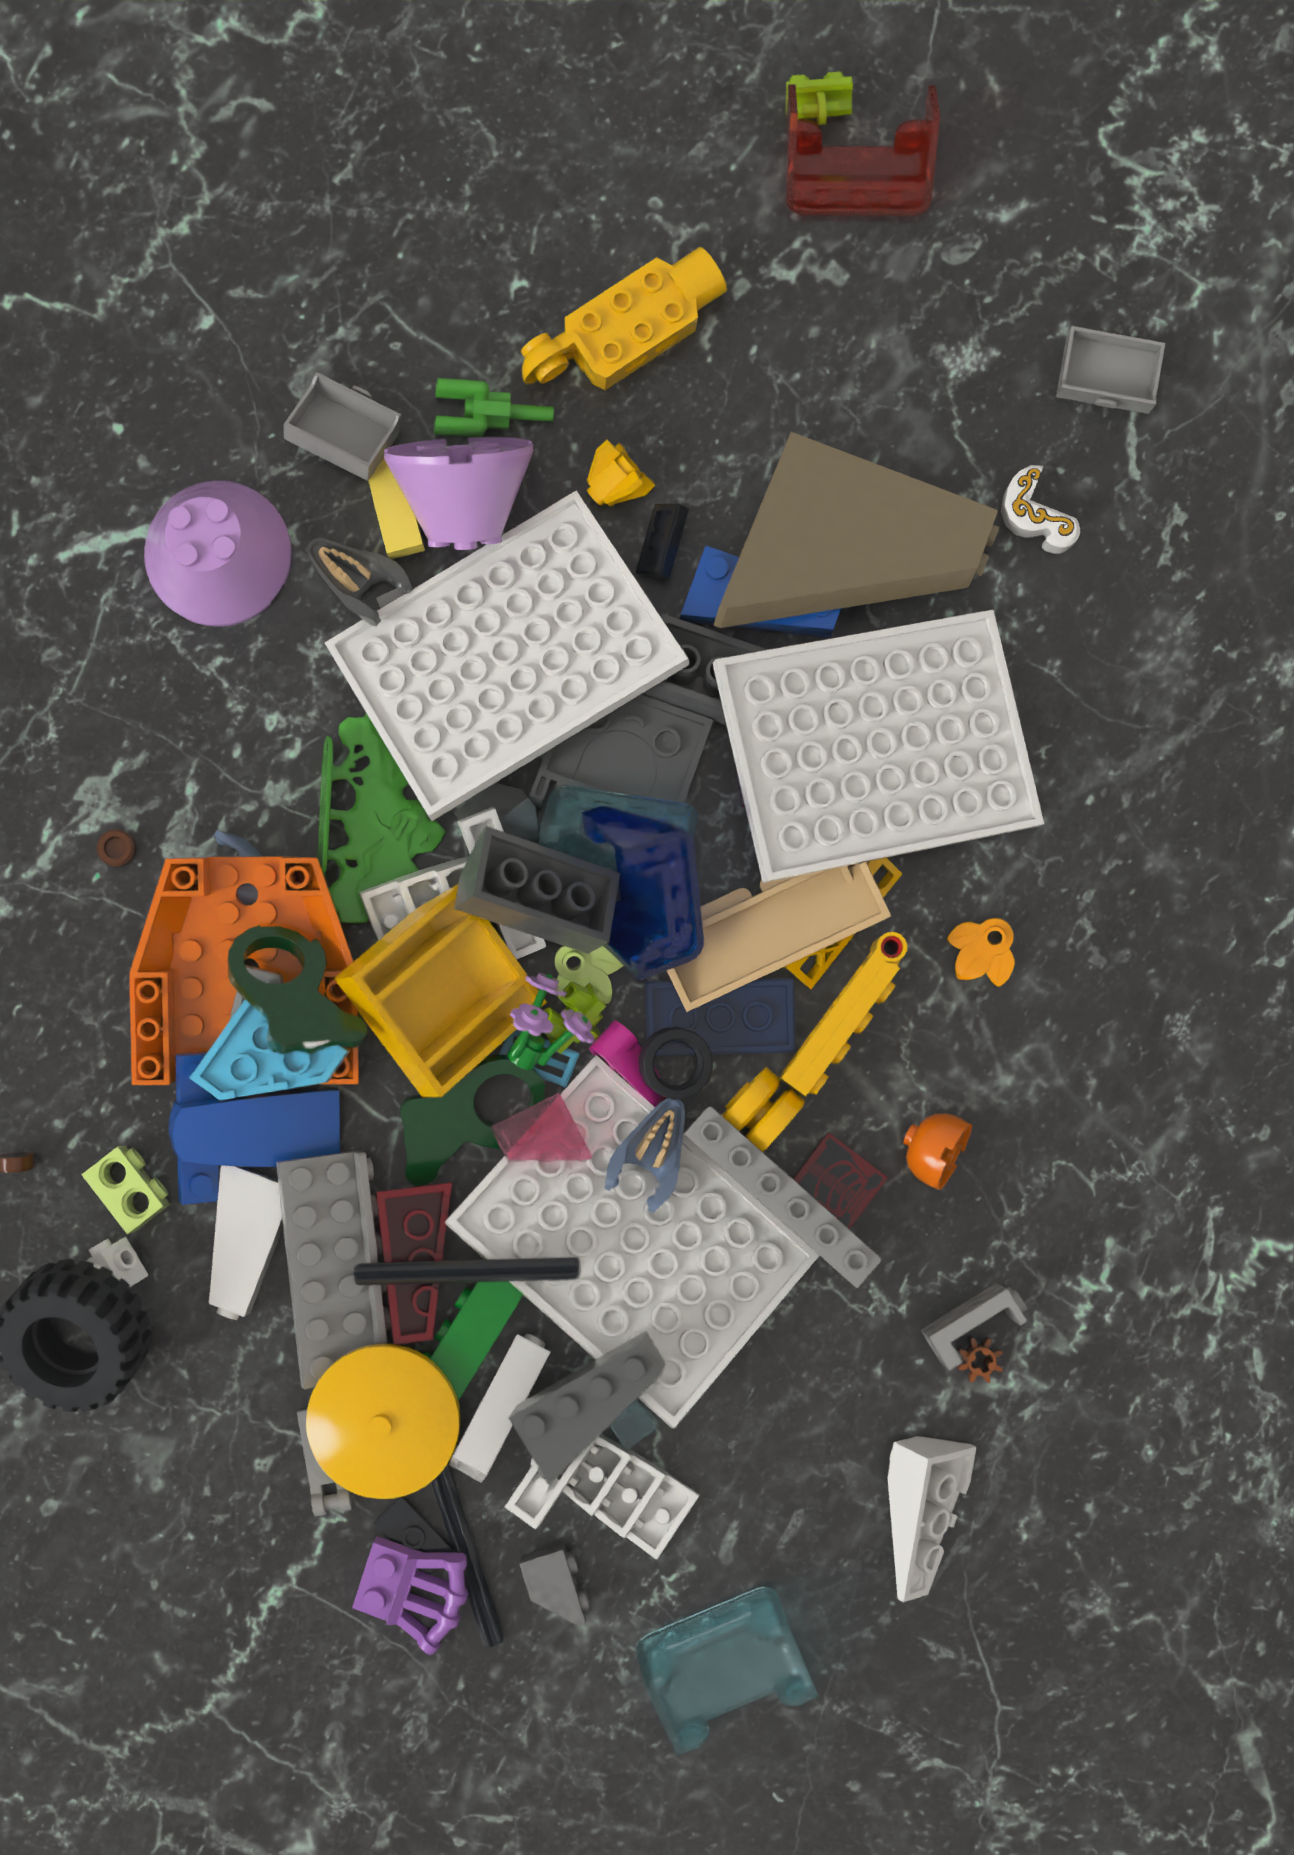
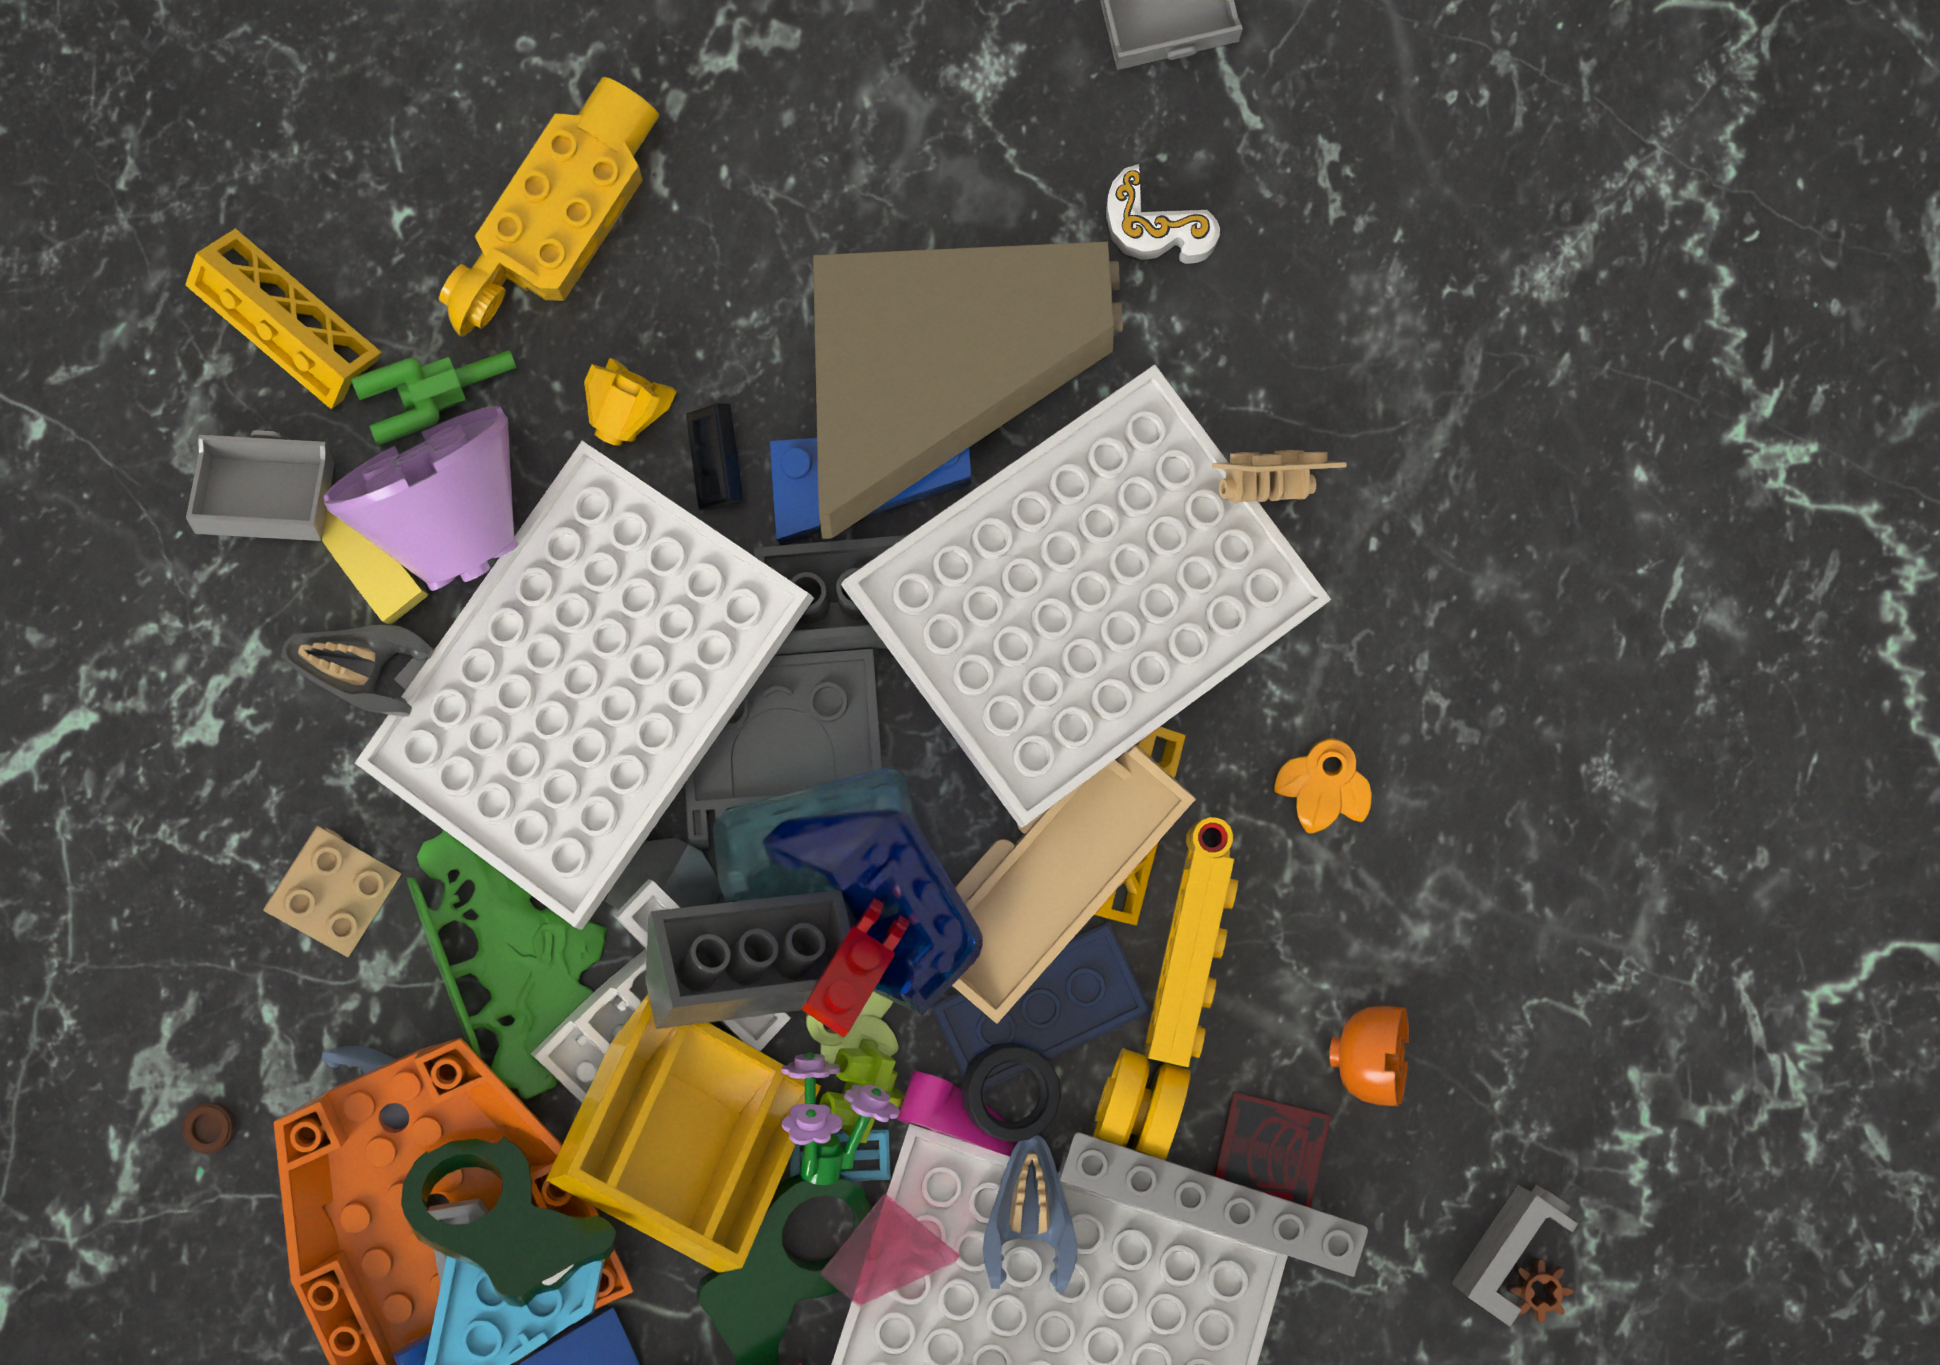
camera: 20 degrees left, 0 degrees up
(218, 553) = (175, 708): lavender cone -> none
(271, 723) = (332, 891): none -> tan hinge
(400, 316) = (273, 320): none -> yellow fence
(605, 930) = (853, 972): none -> red hinge
(1040, 719) = (1271, 476): none -> tan hinge

